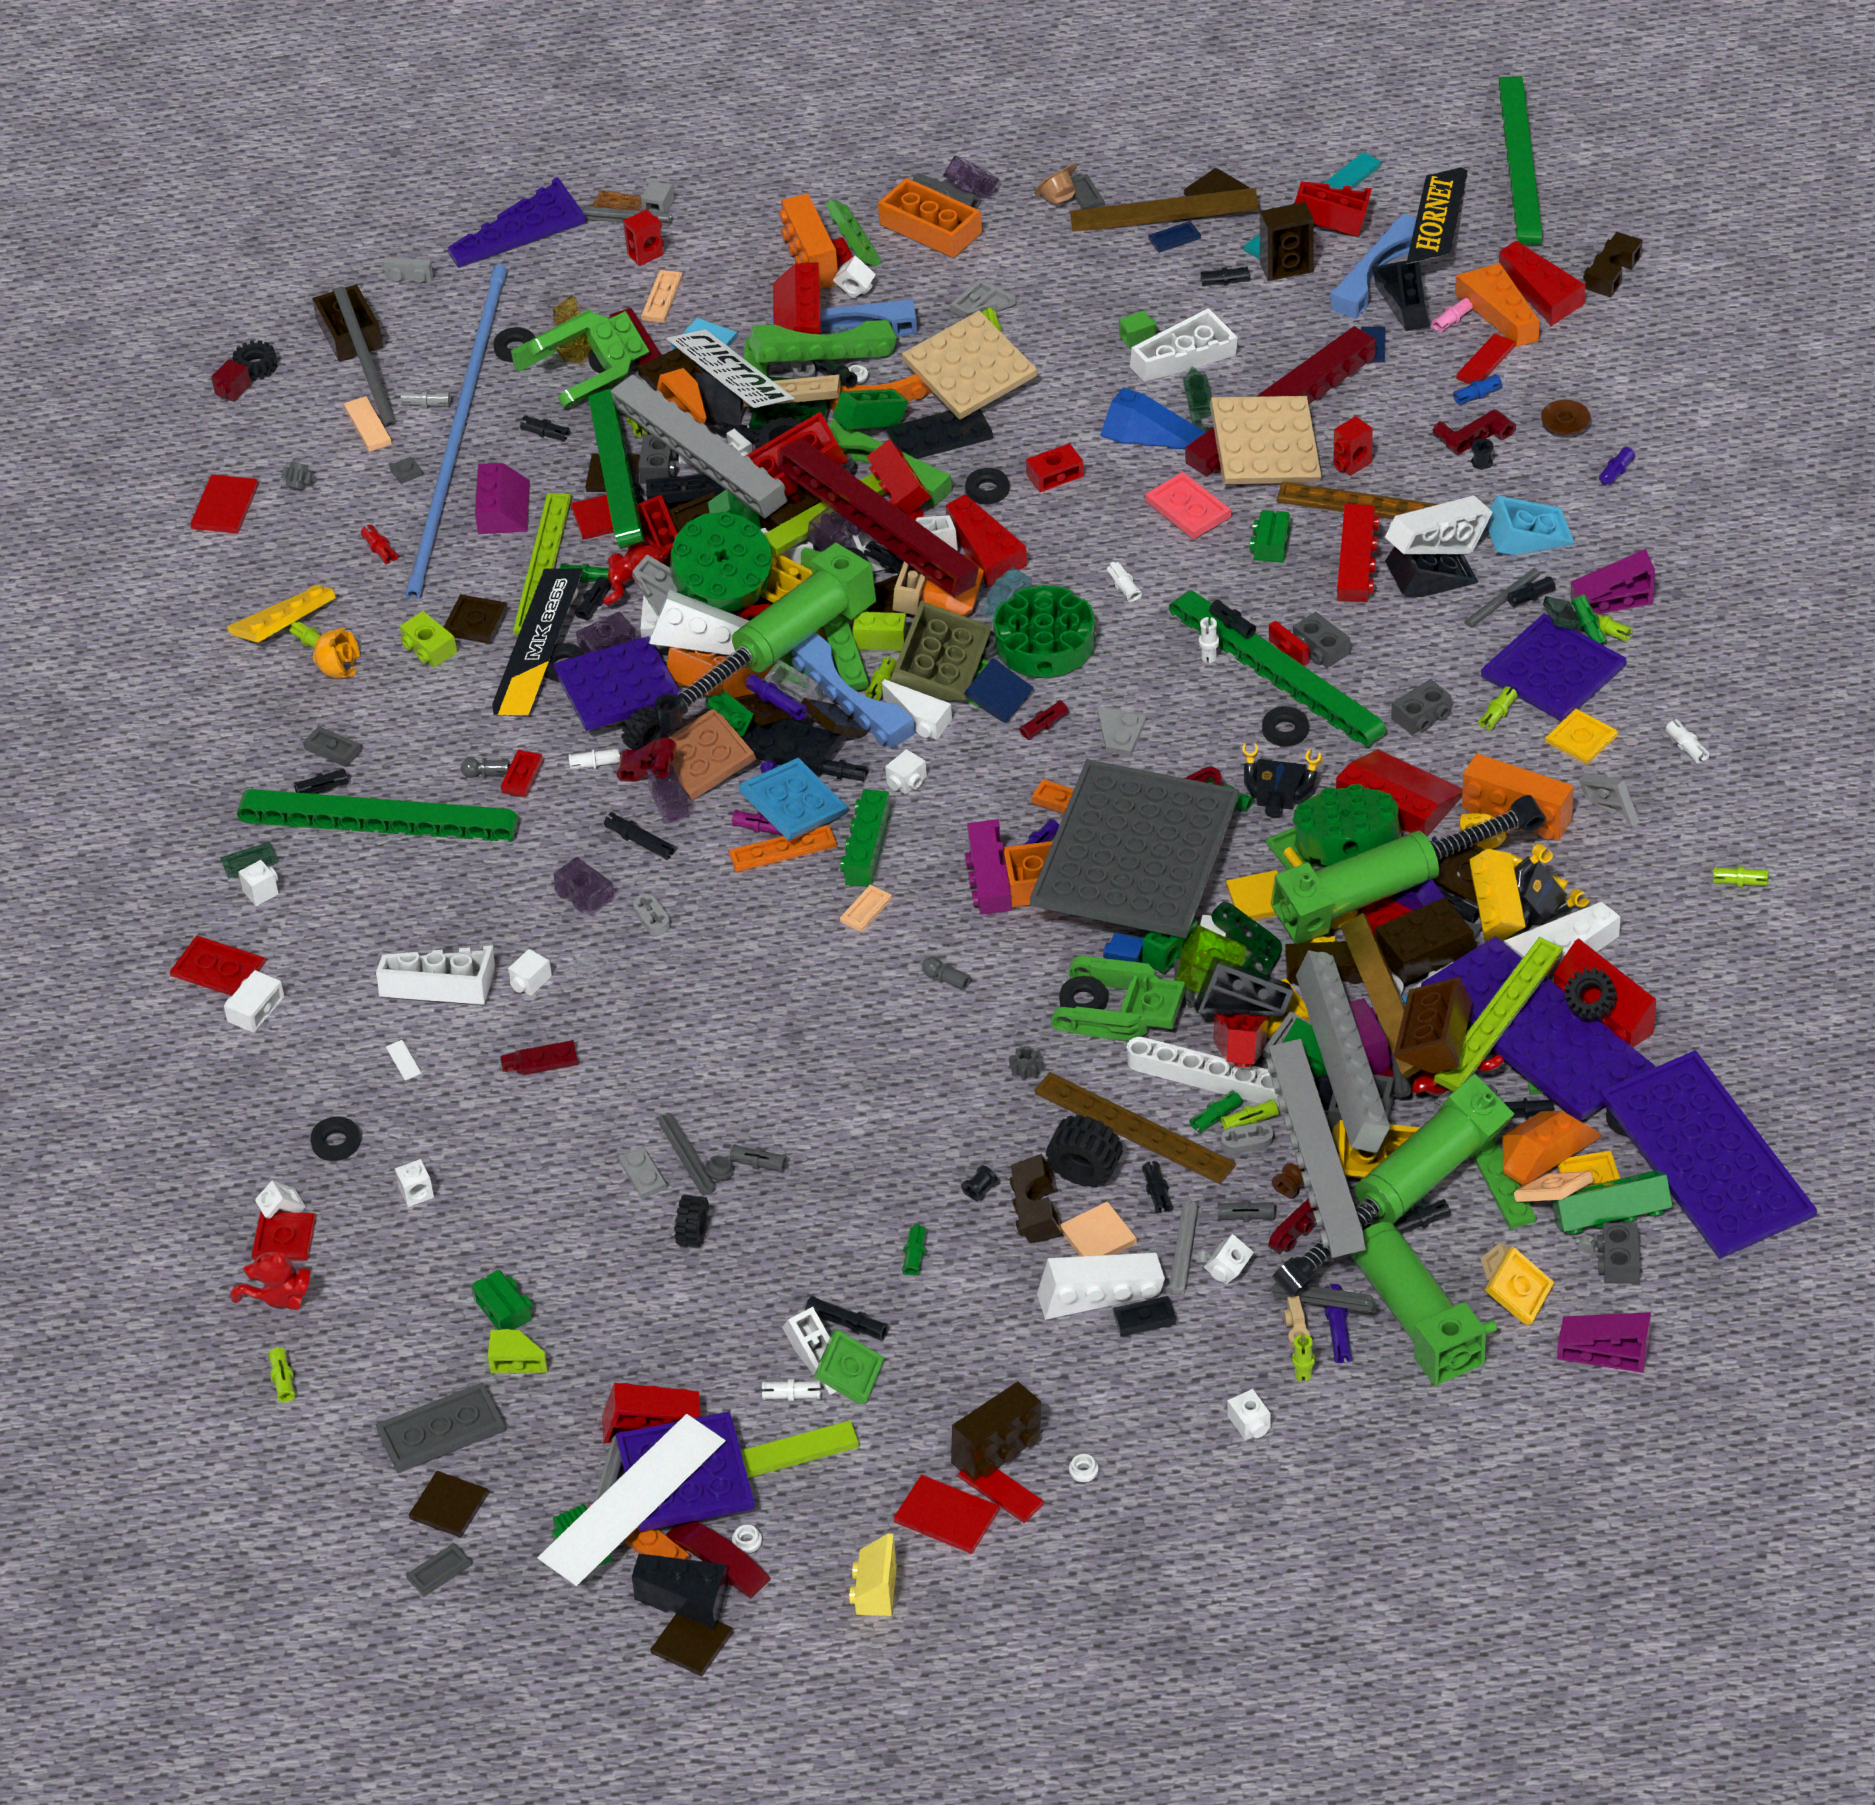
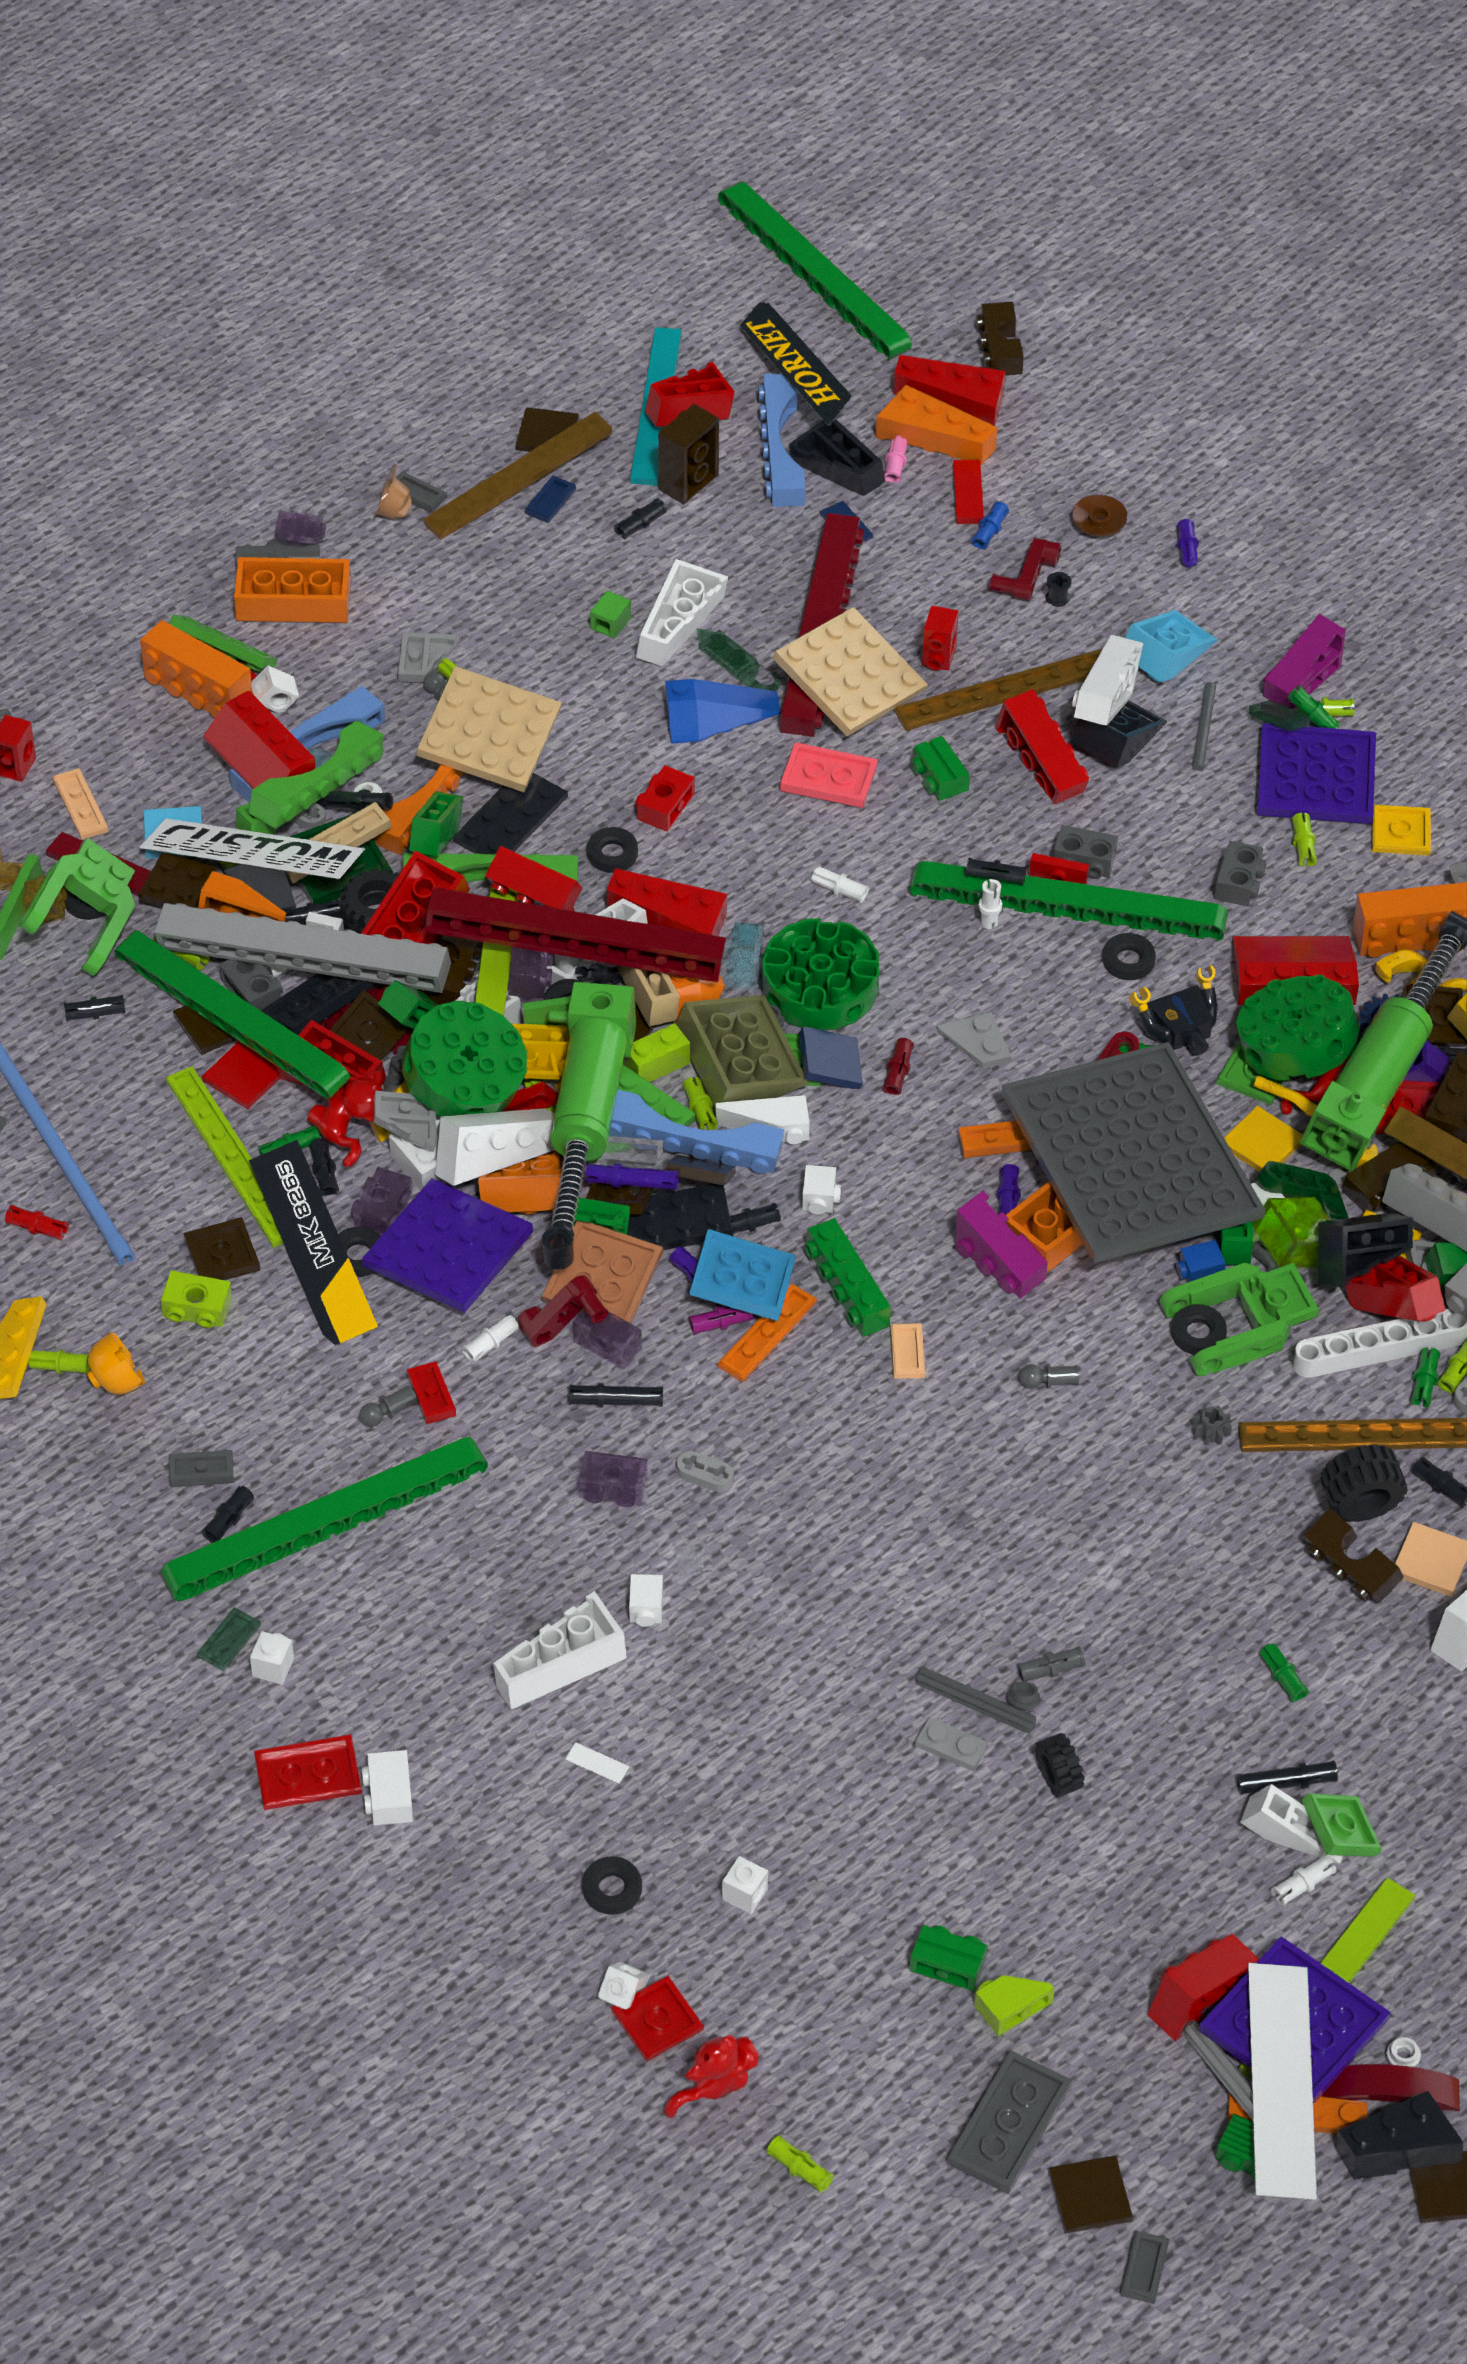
camera: 40 degrees left, 5 degrees up
(501, 499) = (125, 1109): magenta slope -> none
(540, 1058) = (739, 1682): dark red hinge -> none
(642, 729) = (524, 1280): black tyre -> none
(979, 1183) = (1282, 1570): black bush -> none
(1531, 591) = (1227, 706): black axle -> none

